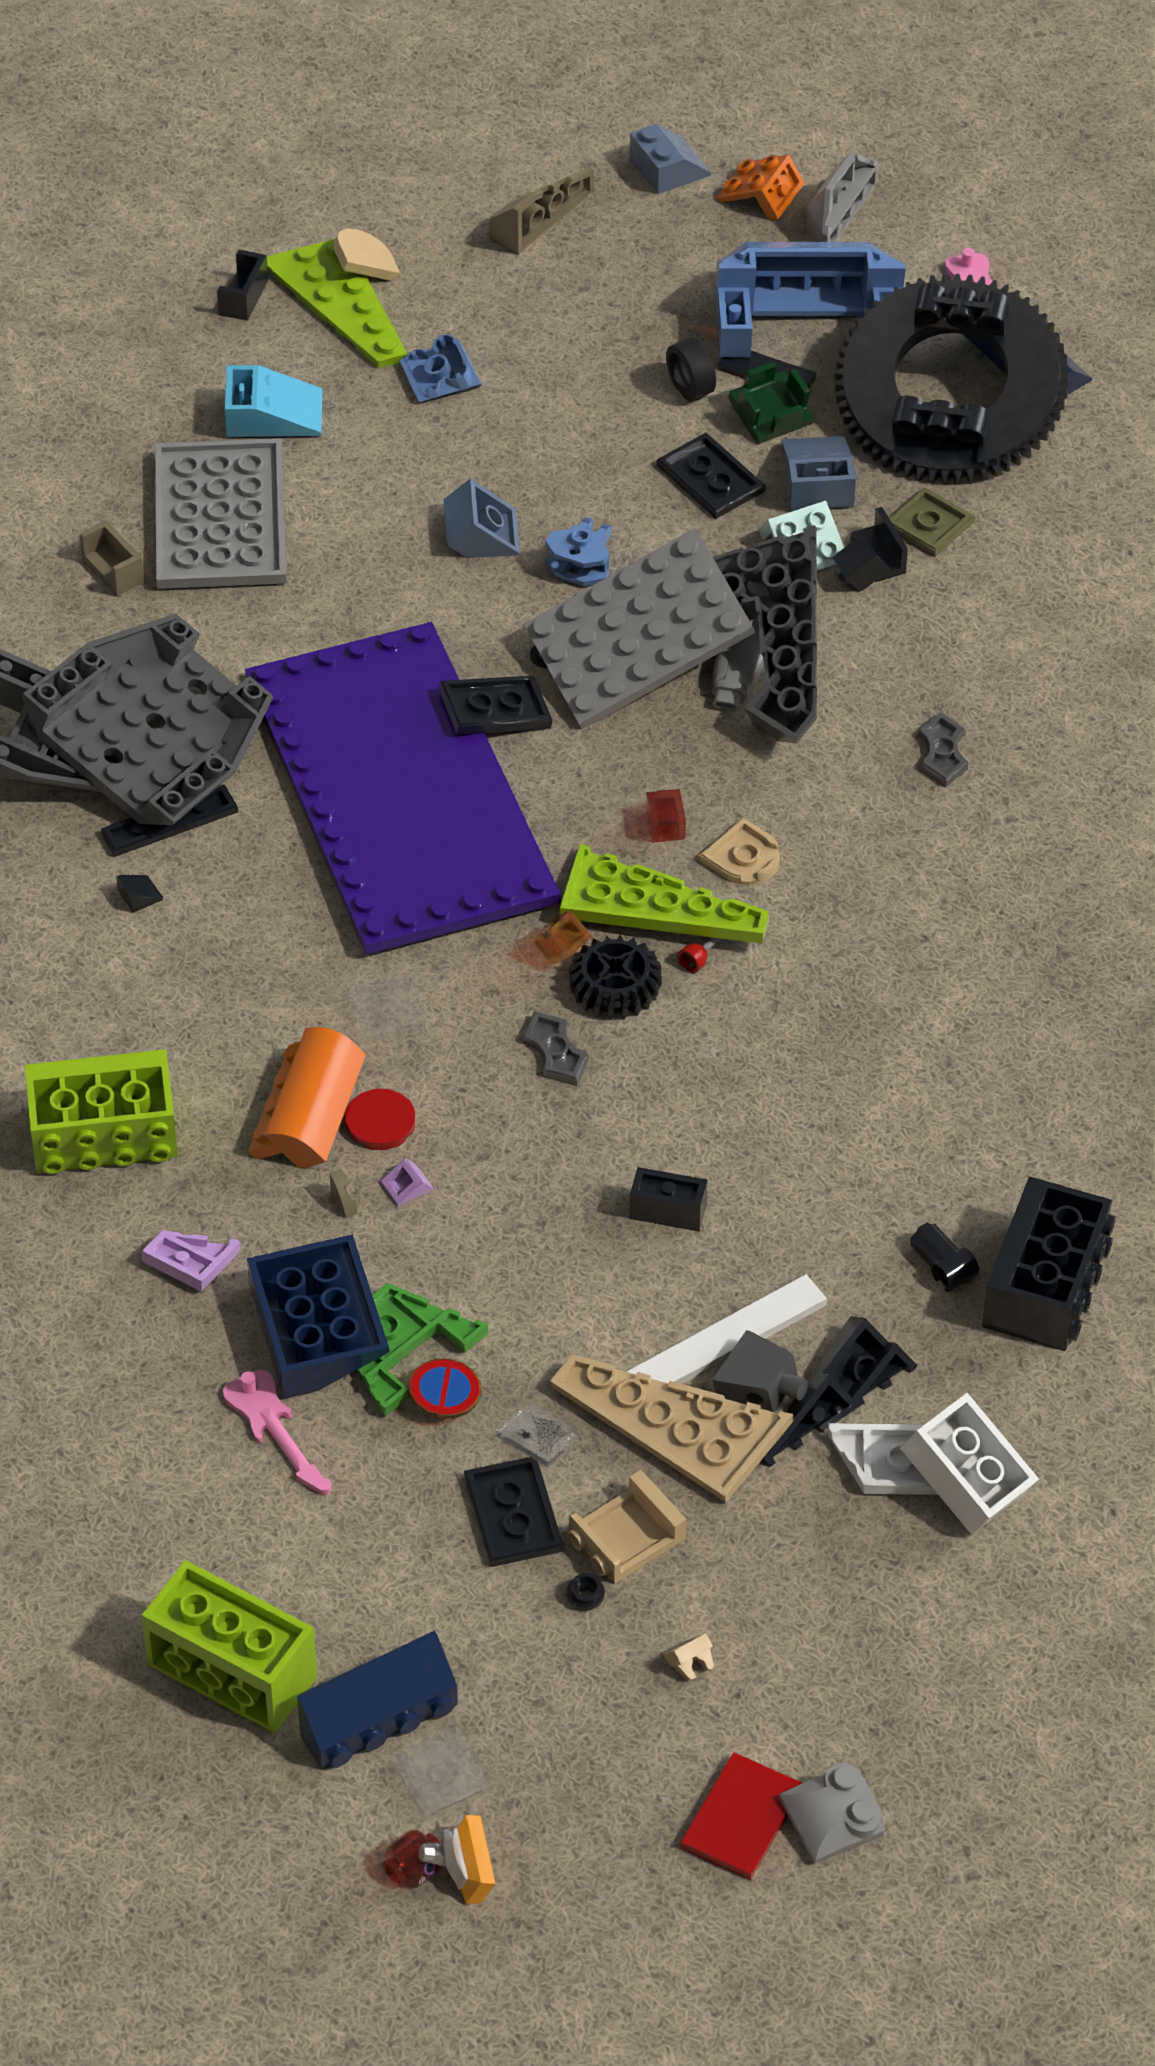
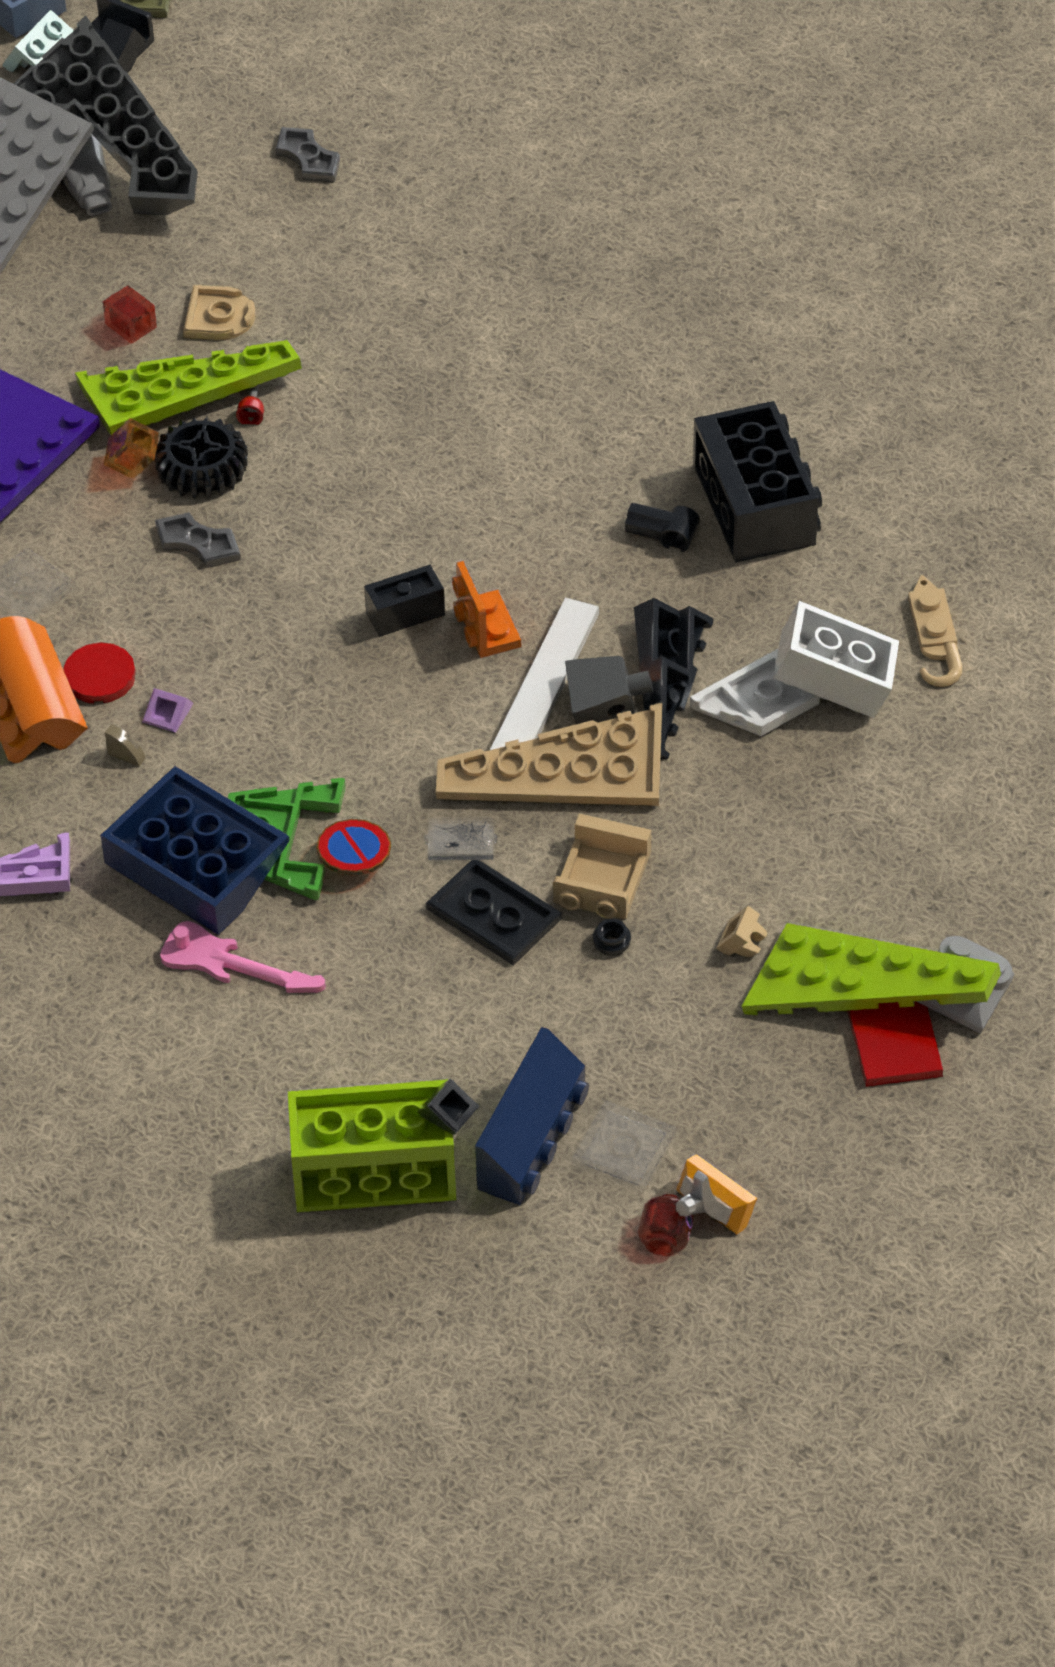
camera: 35 degrees left, 0 degrees up
(290, 1651) = (448, 1107): none -> black slope
(720, 1251) = (485, 616): none -> orange bracket
(746, 1745) = (858, 973): none -> lime wing
(1096, 1489) = (935, 631): none -> tan plate

